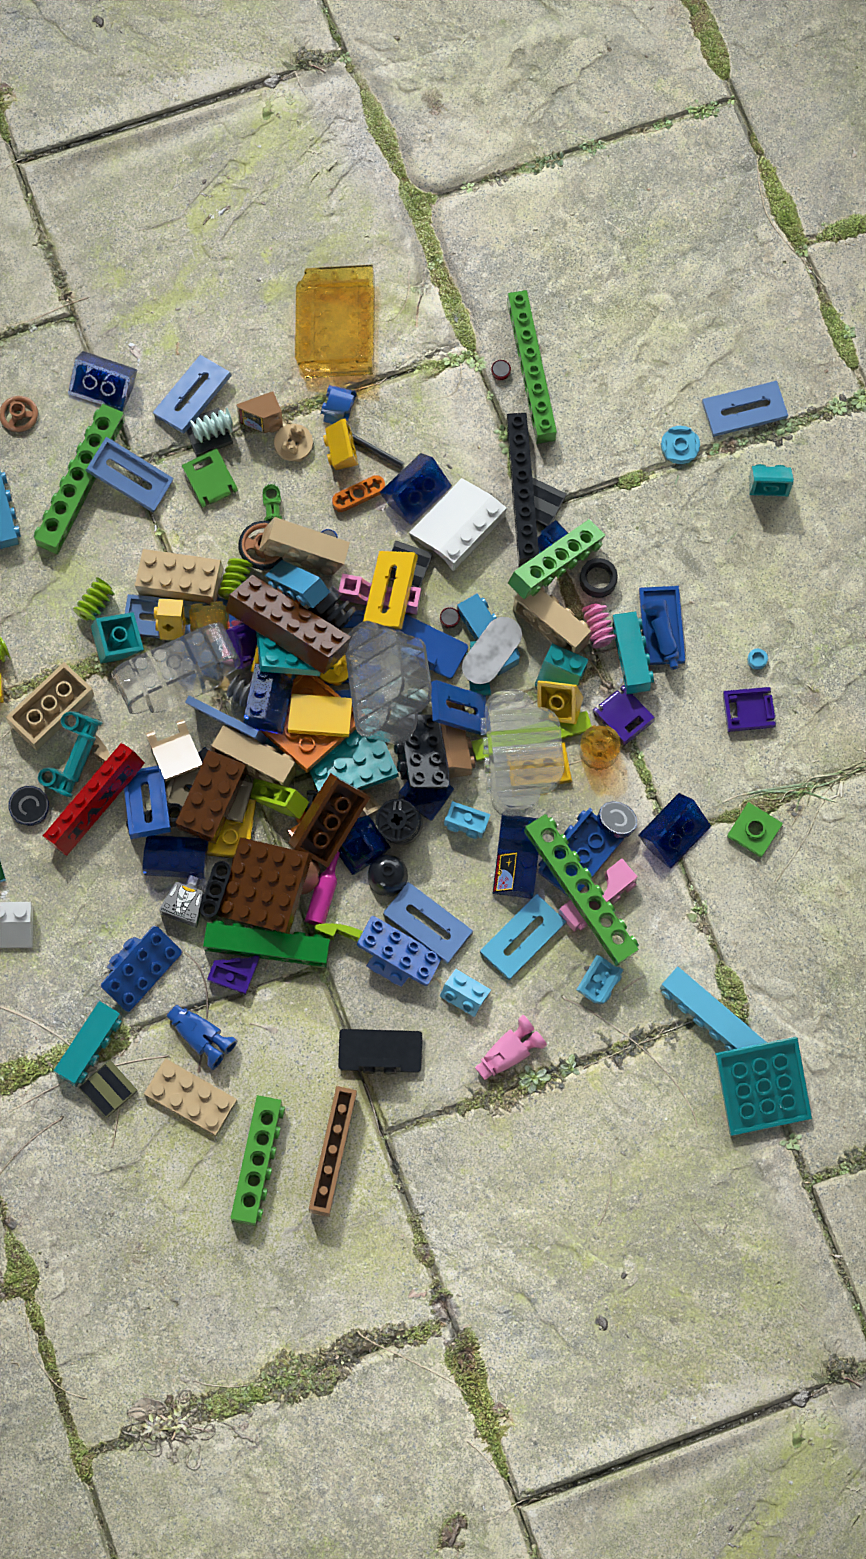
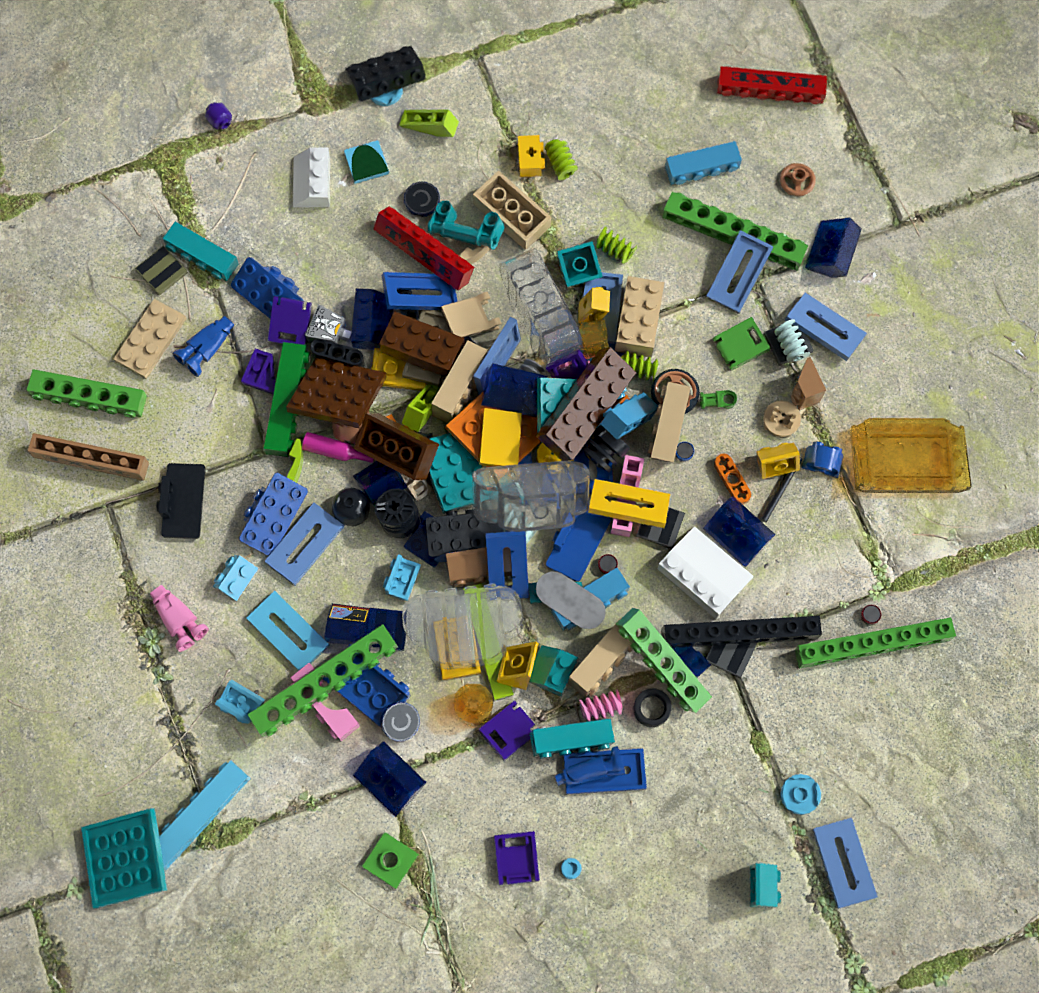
camera: 90 degrees right, 0 degrees up
(175, 941) = (289, 318): none -> dark purple container

